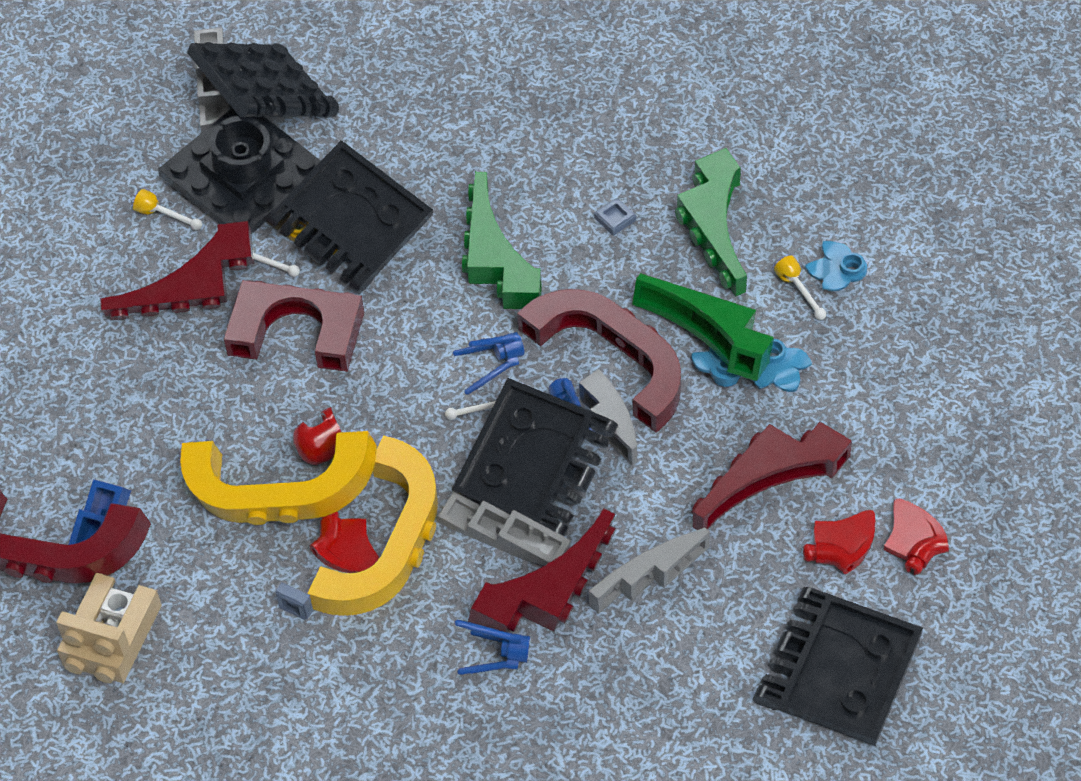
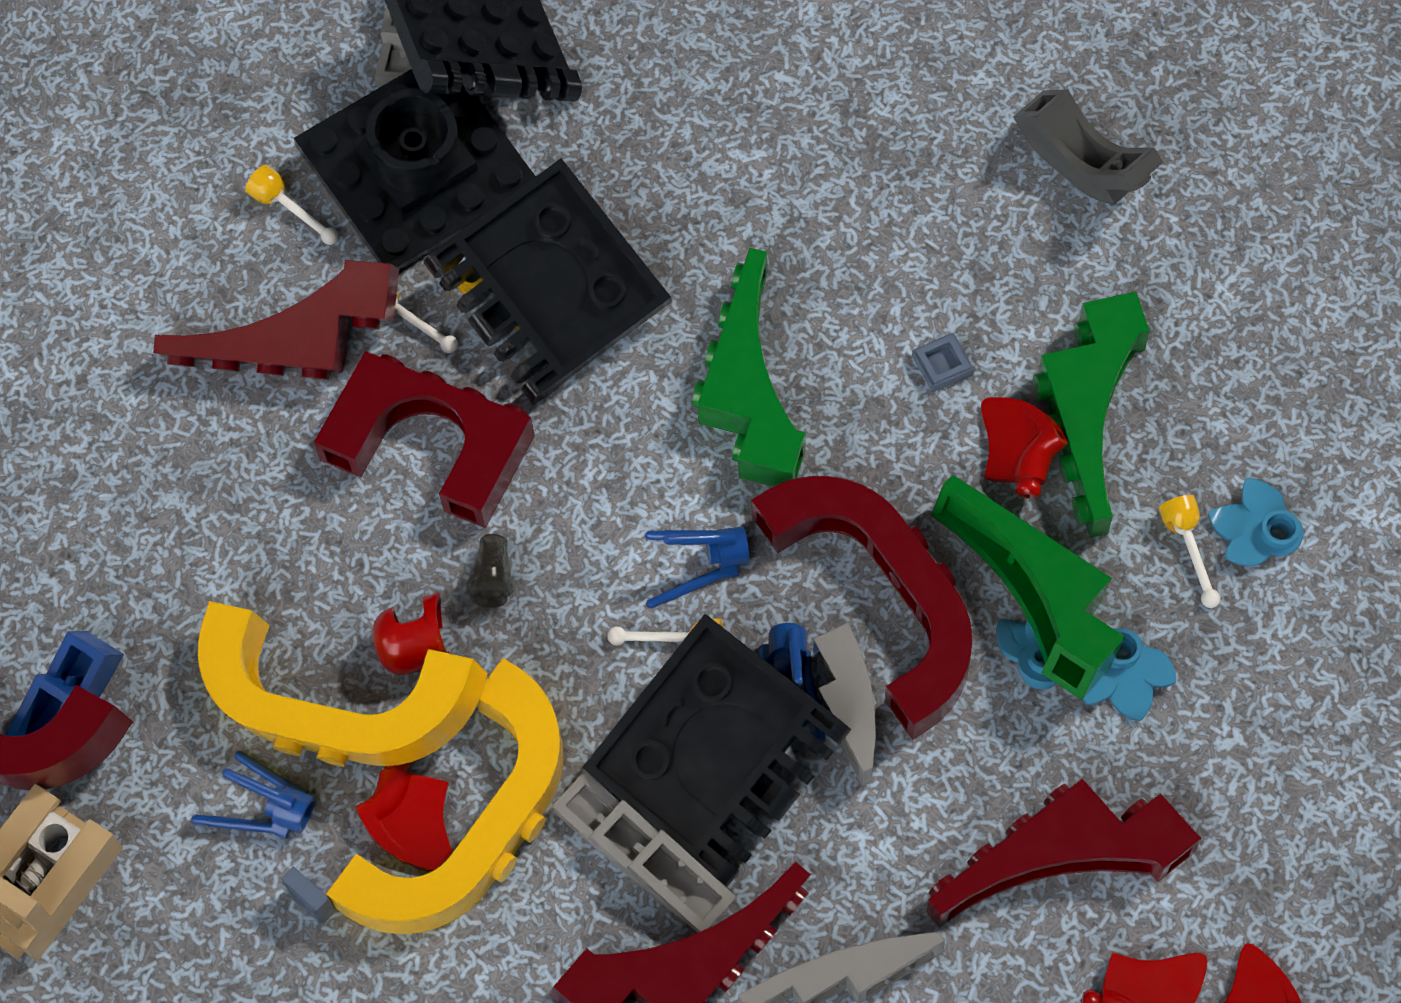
camera: 15 degrees right, 10 degrees up
(264, 554) = (286, 804): none -> blue plant
(360, 396) = (491, 574): none -> clear smoke cone
(665, 79) = (1080, 152): none -> dark grey arch
(677, 249) = (1020, 444): none -> red arm

